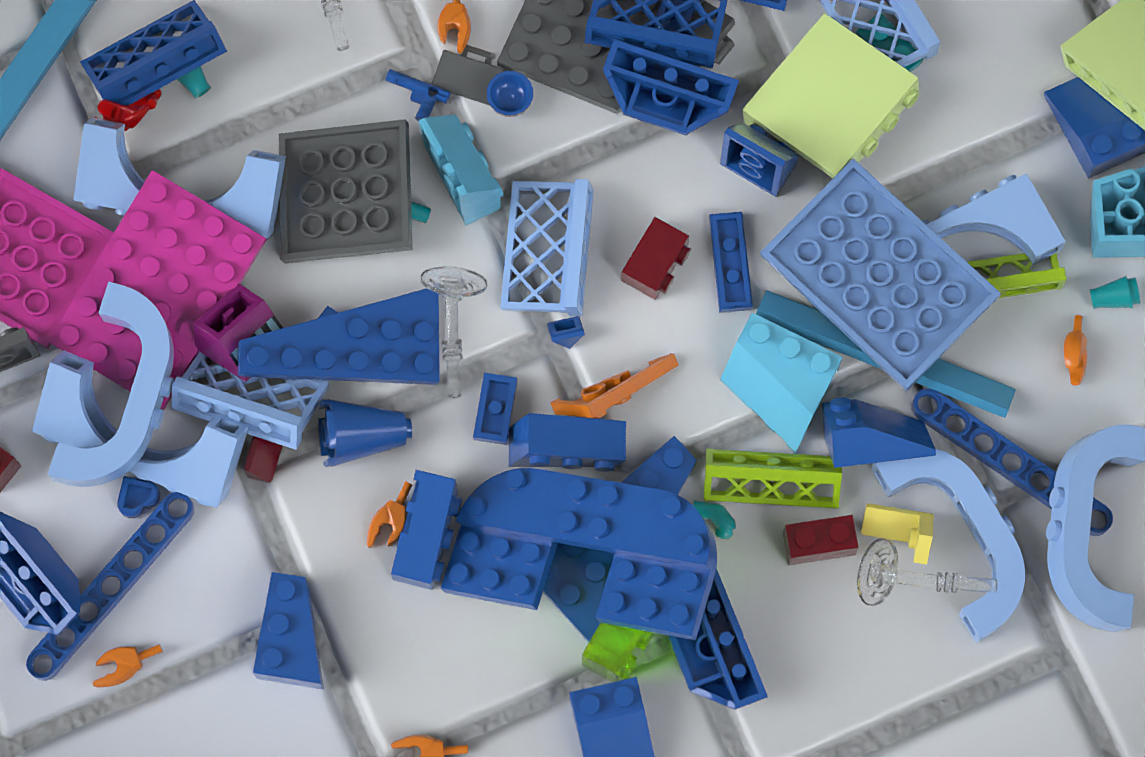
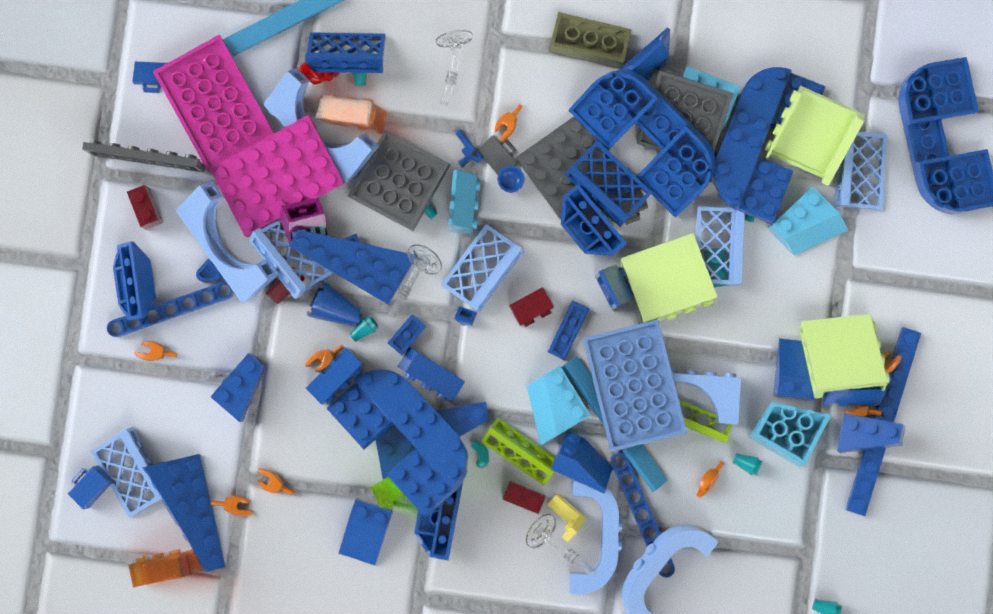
camera: 30 degrees right, 10 degrees up
(142, 413) = (235, 231): light blue arch -> none
(212, 135) = (351, 112): none -> clear orange wedge
(425, 437) = (365, 327): none -> teal cone
(613, 390) = (469, 361): orange wing -> none

